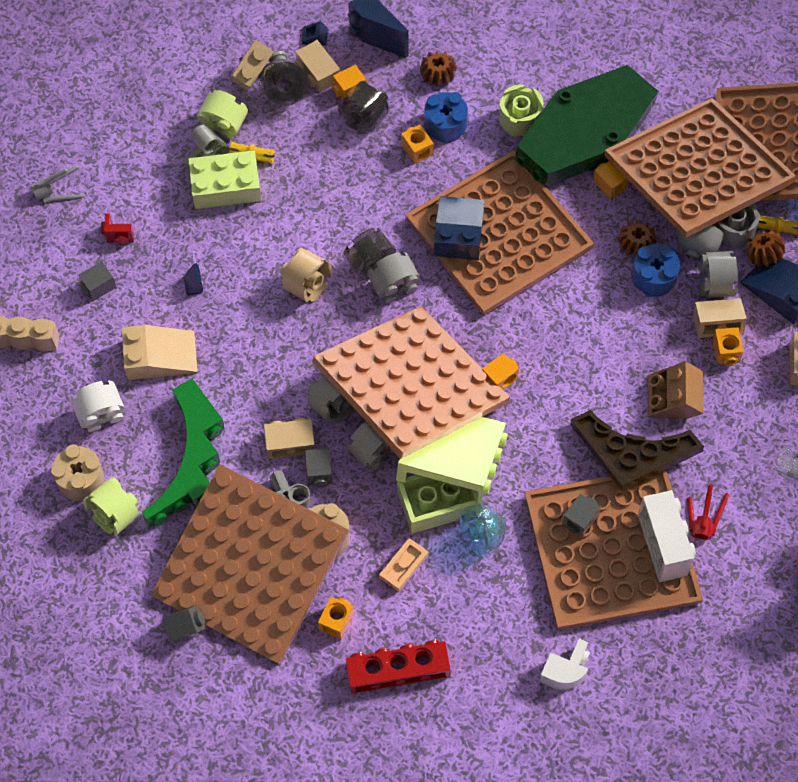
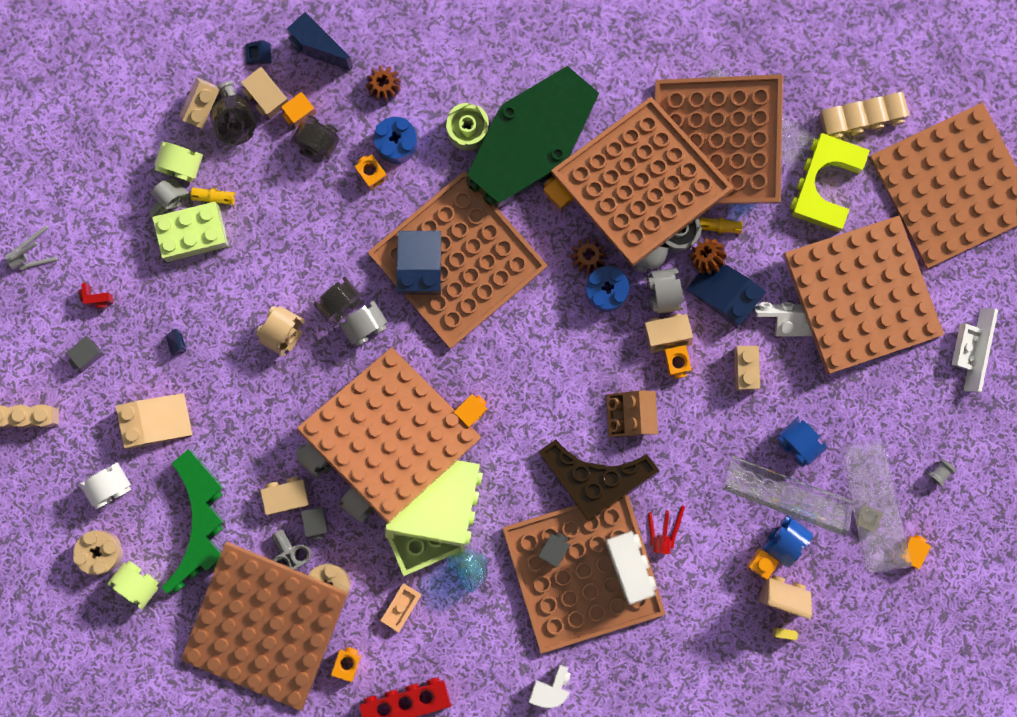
camera: 10 degrees left, 20 degrees up
(184, 623) = (214, 687): dark grey brick -> none

